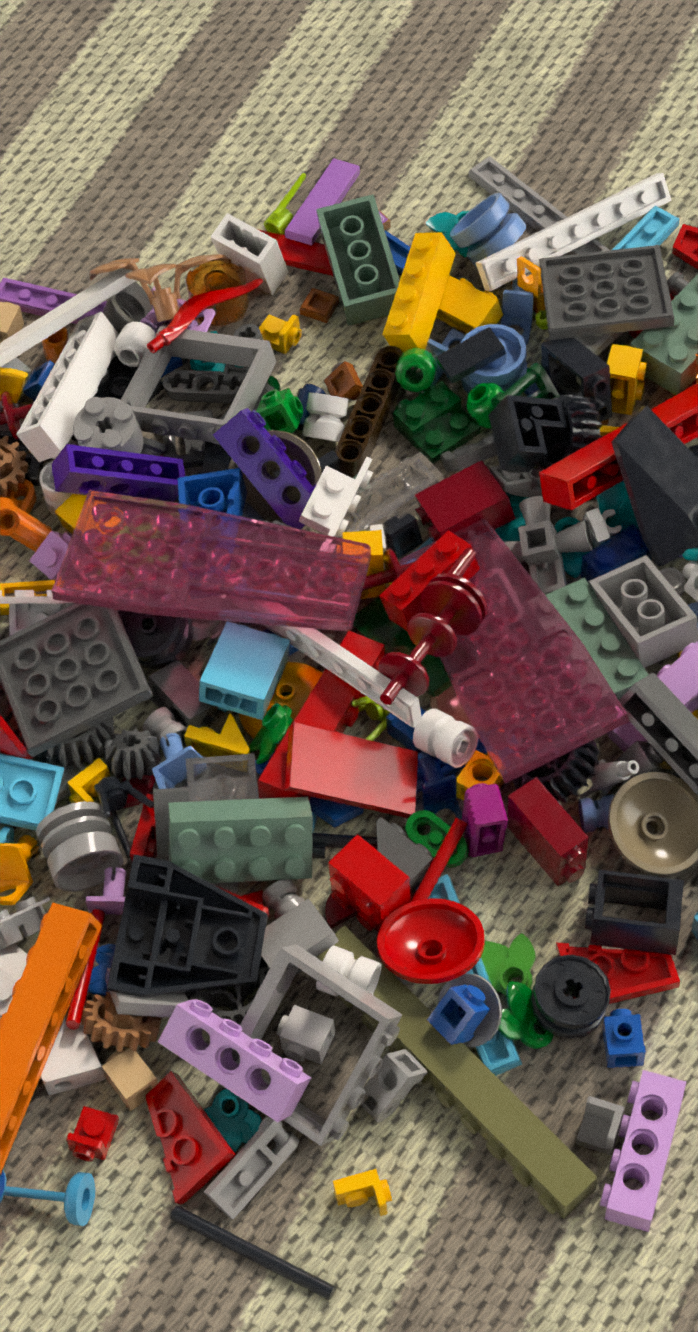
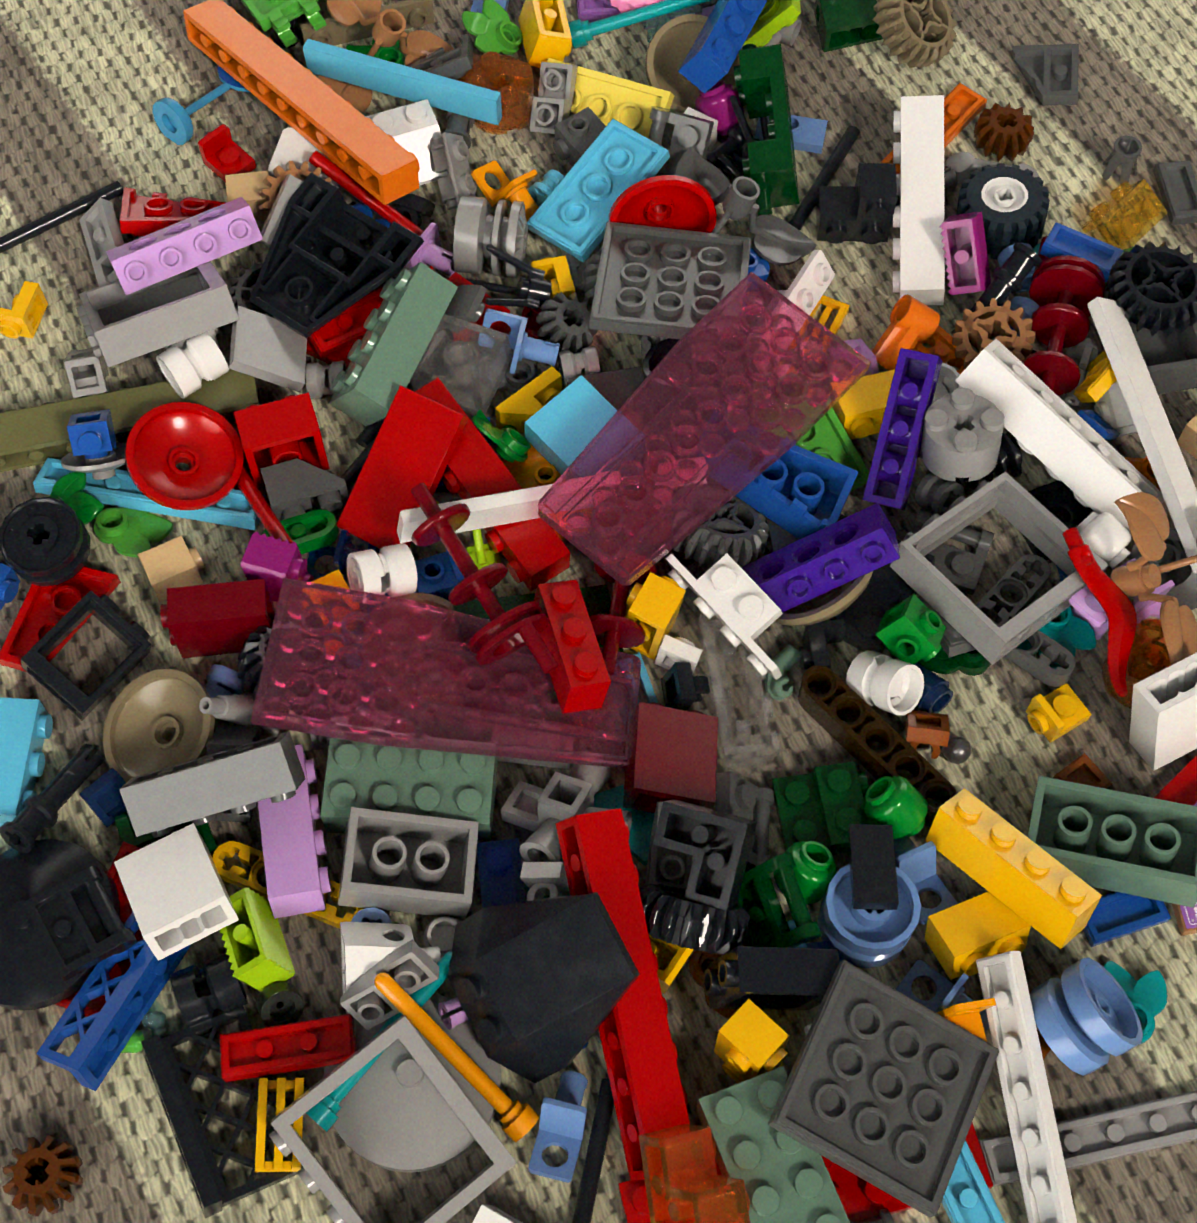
camera: 115 degrees right, 5 degrees up
(524, 909) = (171, 566): none -> tan brick

